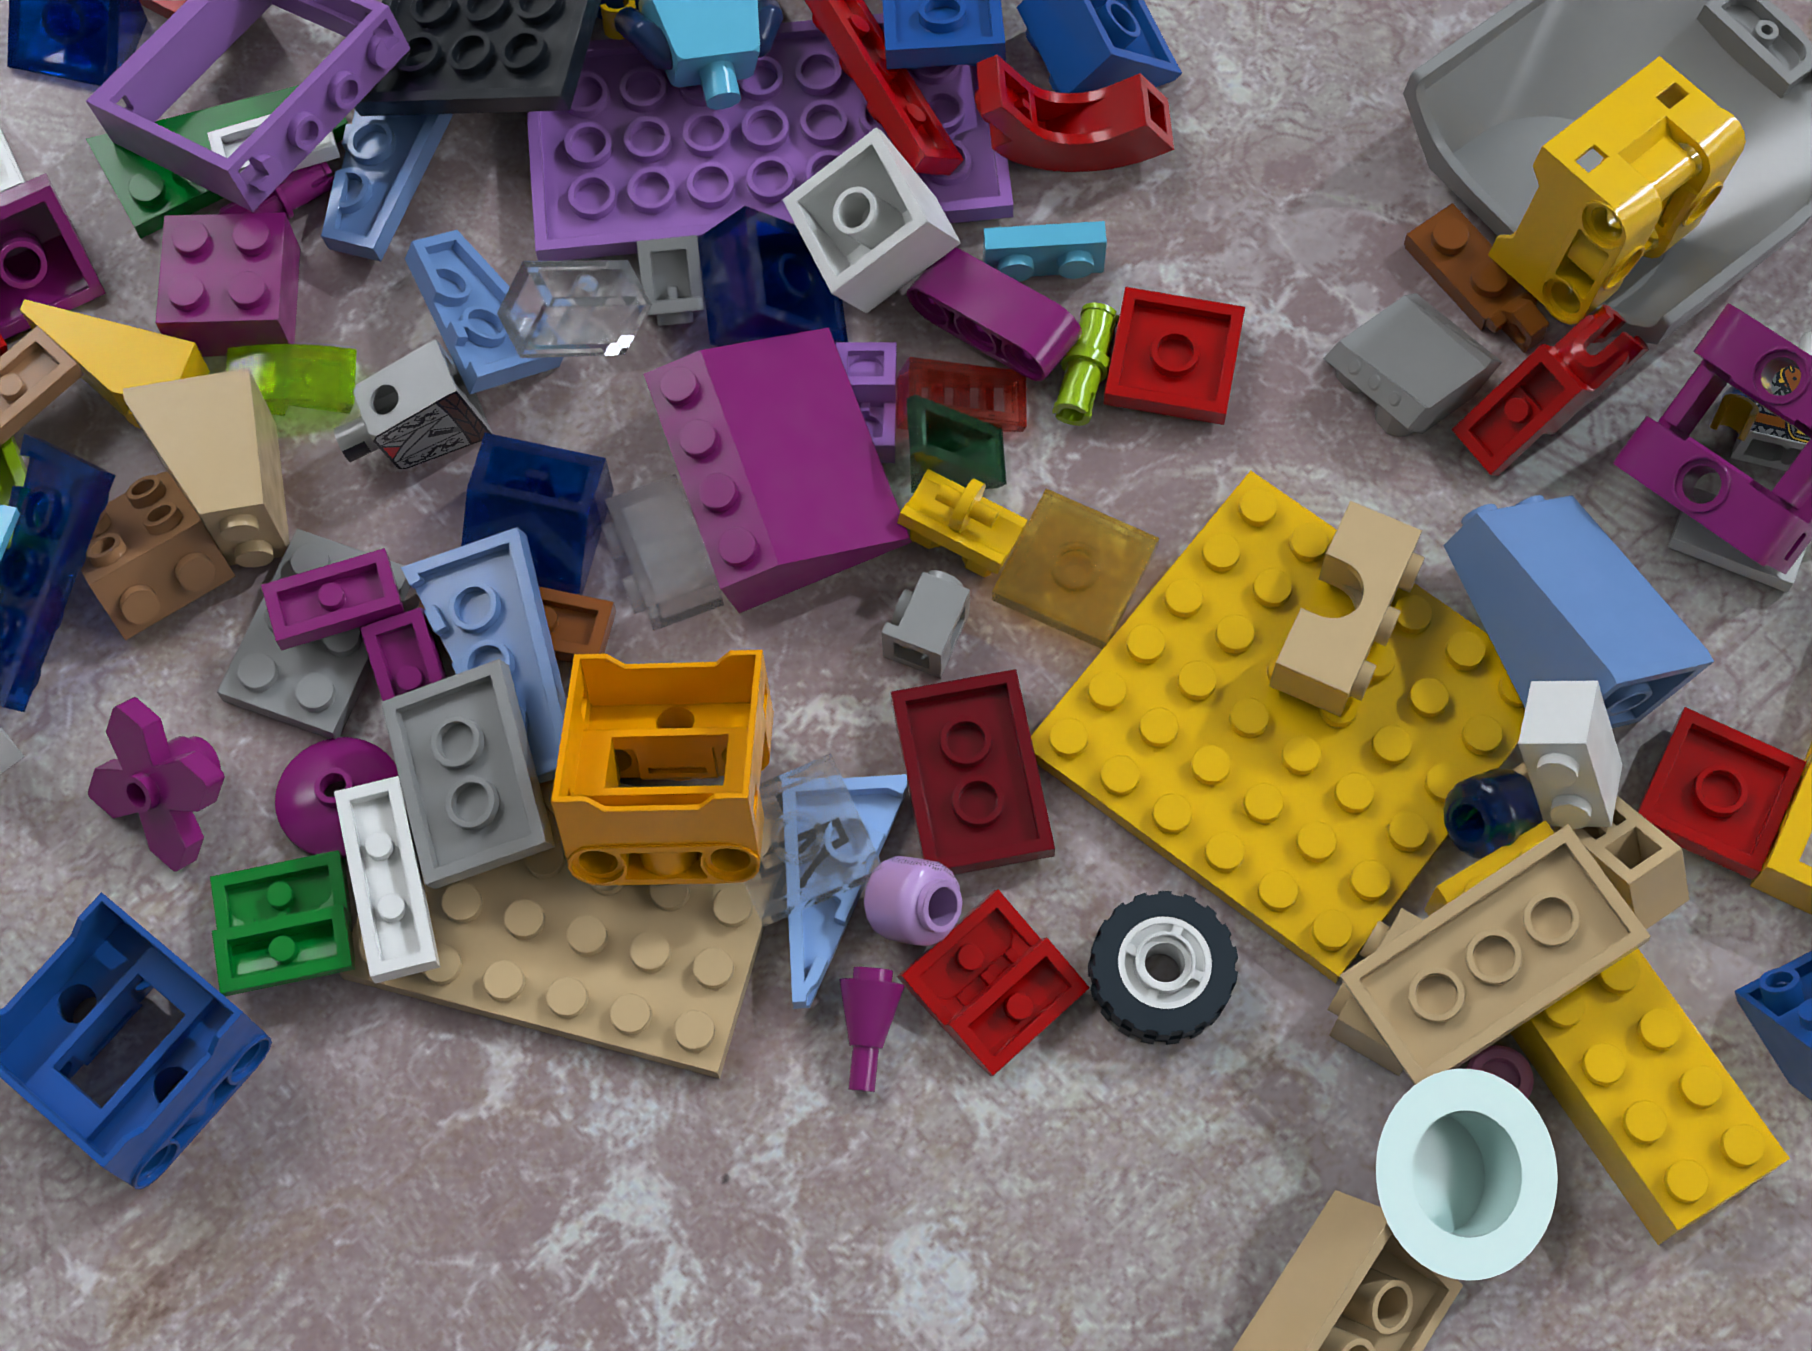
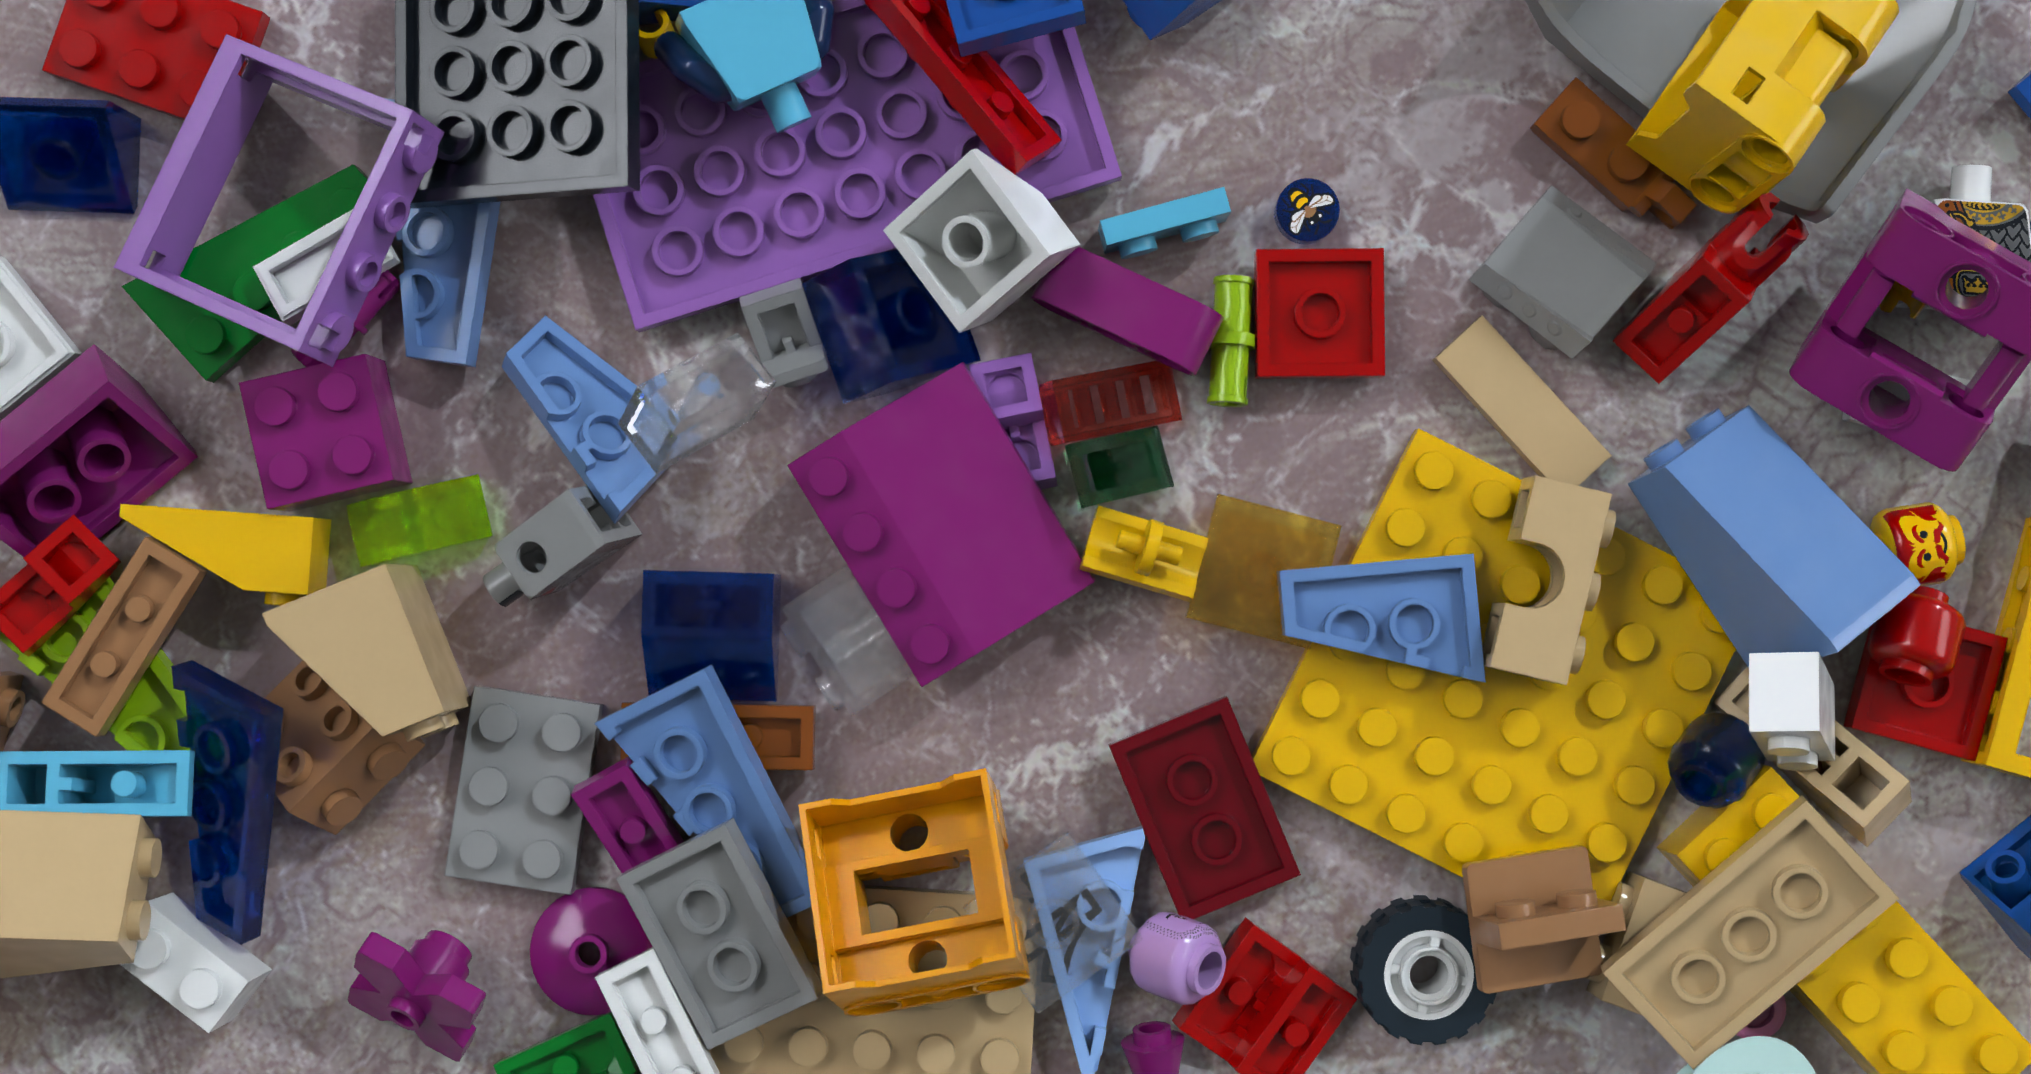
camera: 15 degrees left, 20 degrees up
(332, 599) = (535, 771): magenta plate -> none
(927, 623) = (1130, 660): light grey brick -> none
(1072, 130) = (1168, 70): red arch -> none
(1180, 270) = (1306, 211): none -> tile
(1189, 609) = (1391, 610): none -> medium blue wing
(1282, 923) = (1536, 919): none -> medium nougat bracket
(1347, 460) = (1520, 405): none -> tan tile
(1709, 728) = (1918, 638): none -> red head
(1739, 664) = (1922, 539): none -> yellow head

